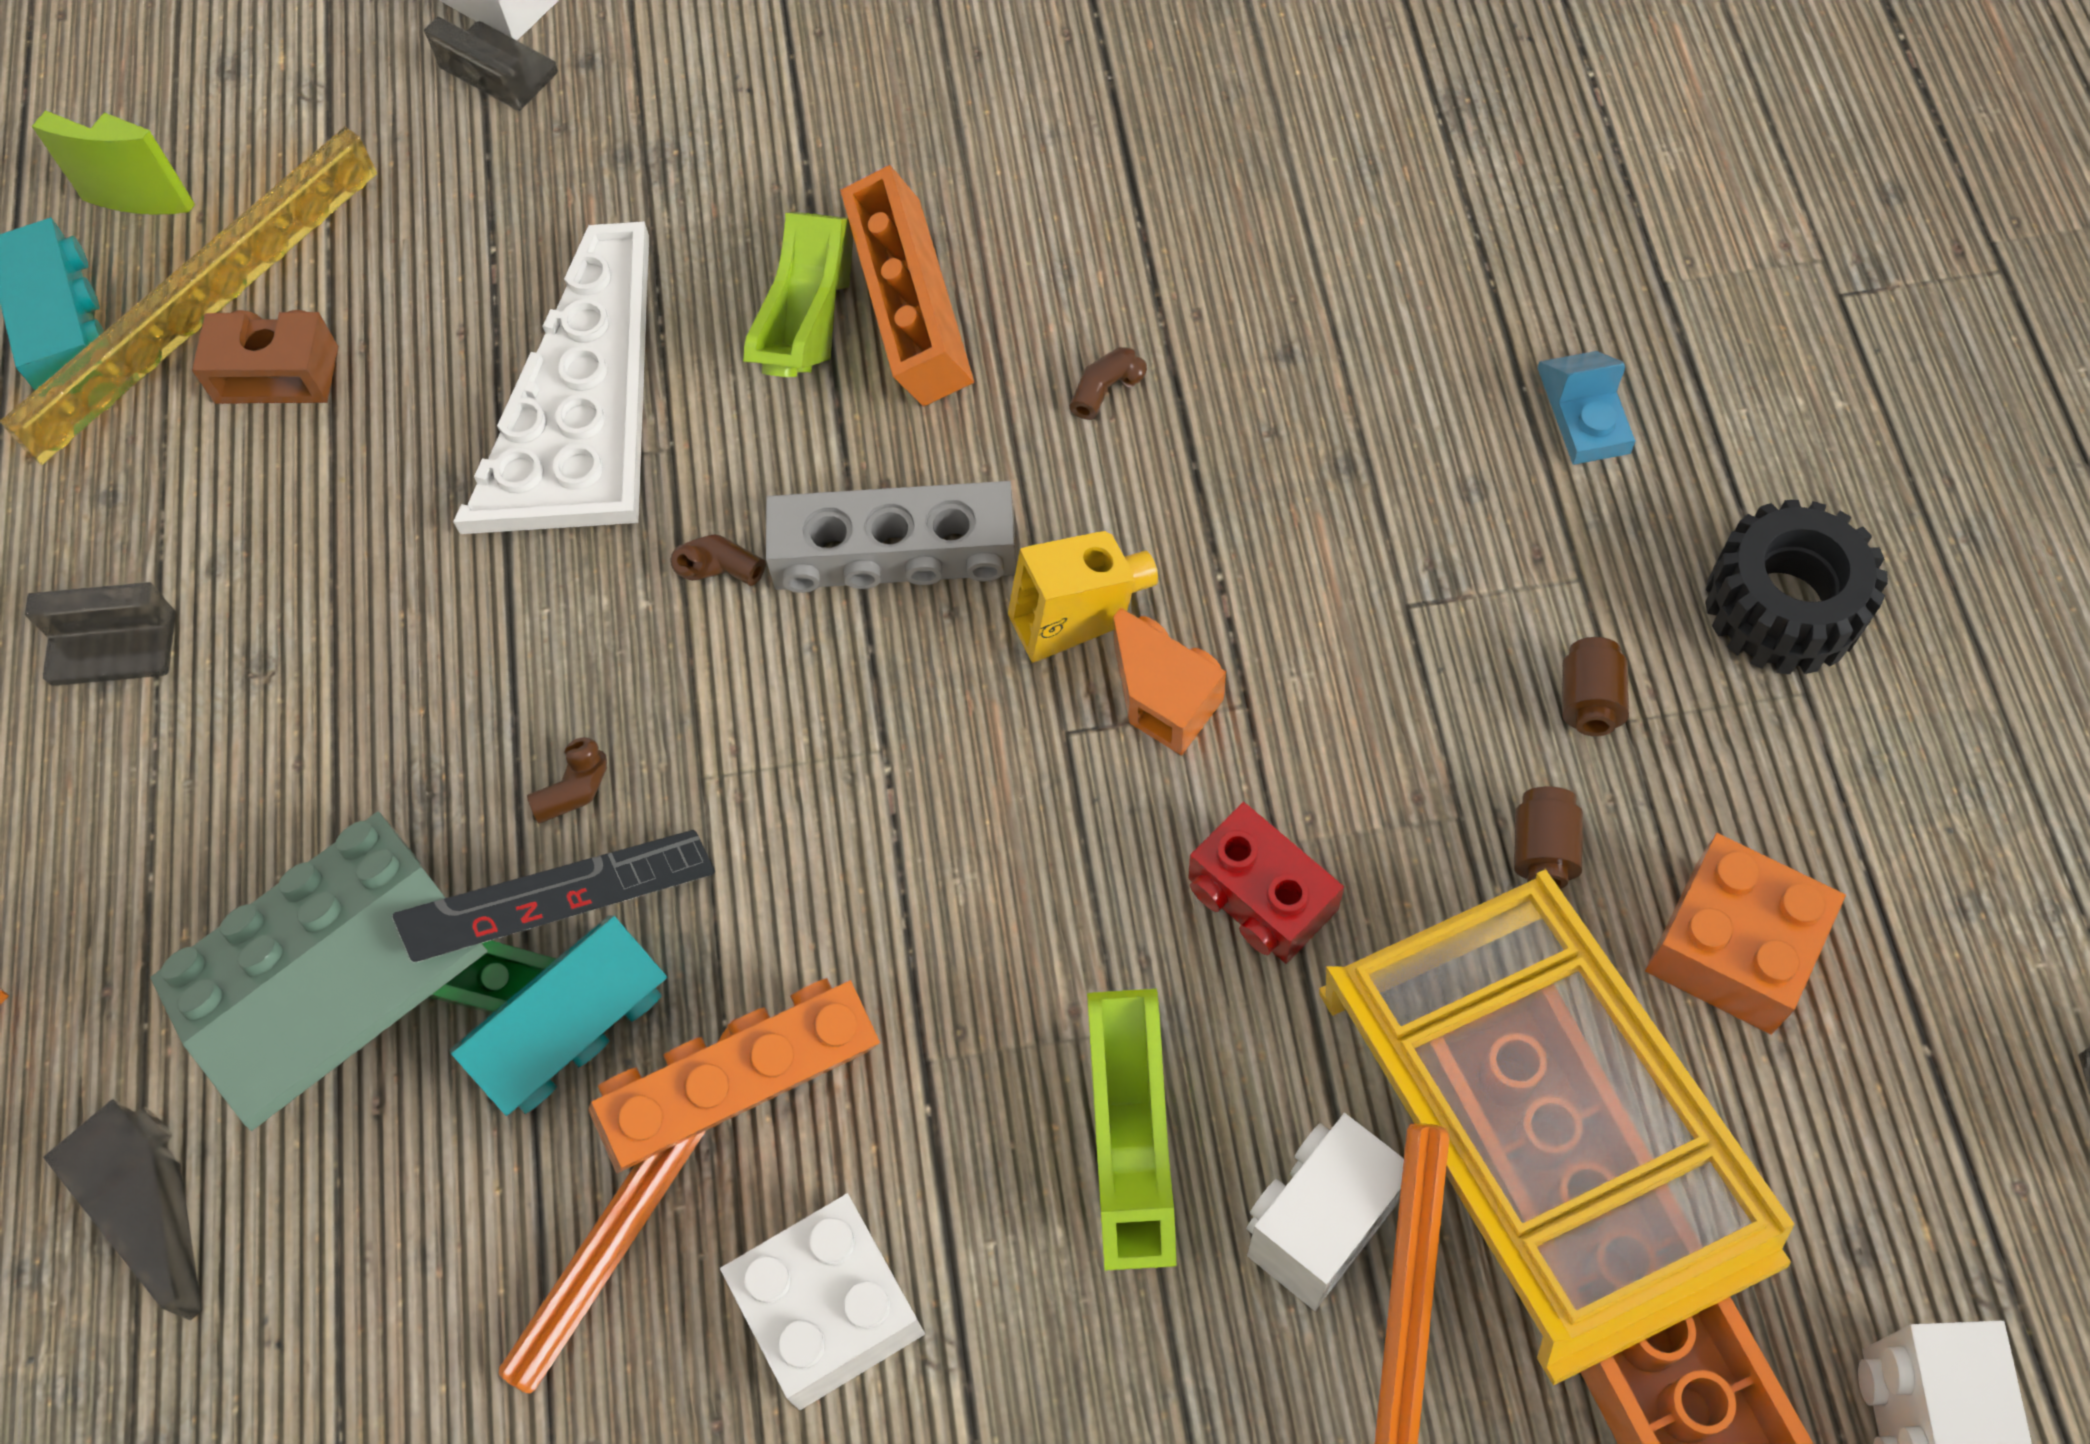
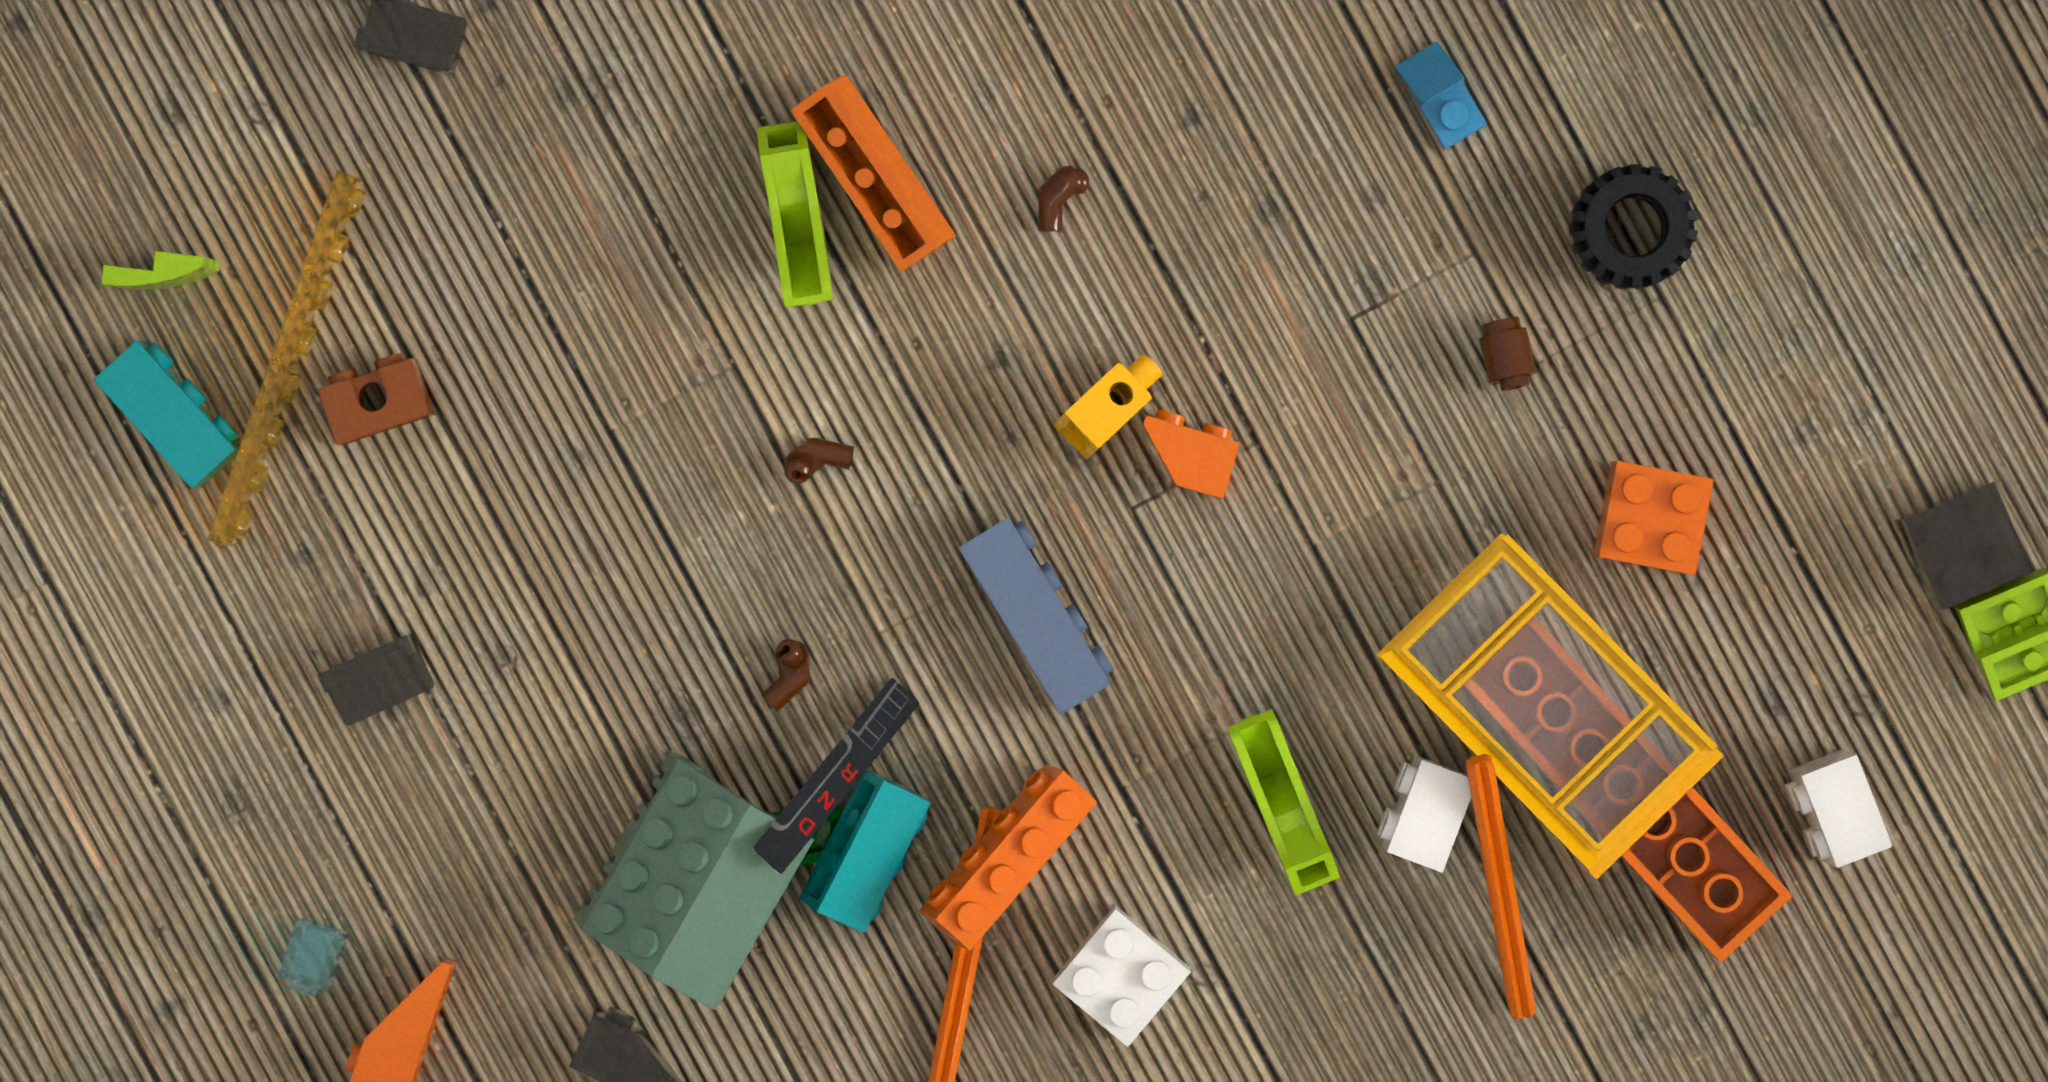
camera: 25 degrees left, 25 degrees up
(577, 409) = (649, 369): white wing -> none
(865, 518) = (872, 415): light grey brick -> none
(896, 800) = (1035, 615): none -> sand blue brick
(1263, 884) = (1314, 589): red brick -> none
(1548, 835) = (1503, 488): reddish brown brick -> none

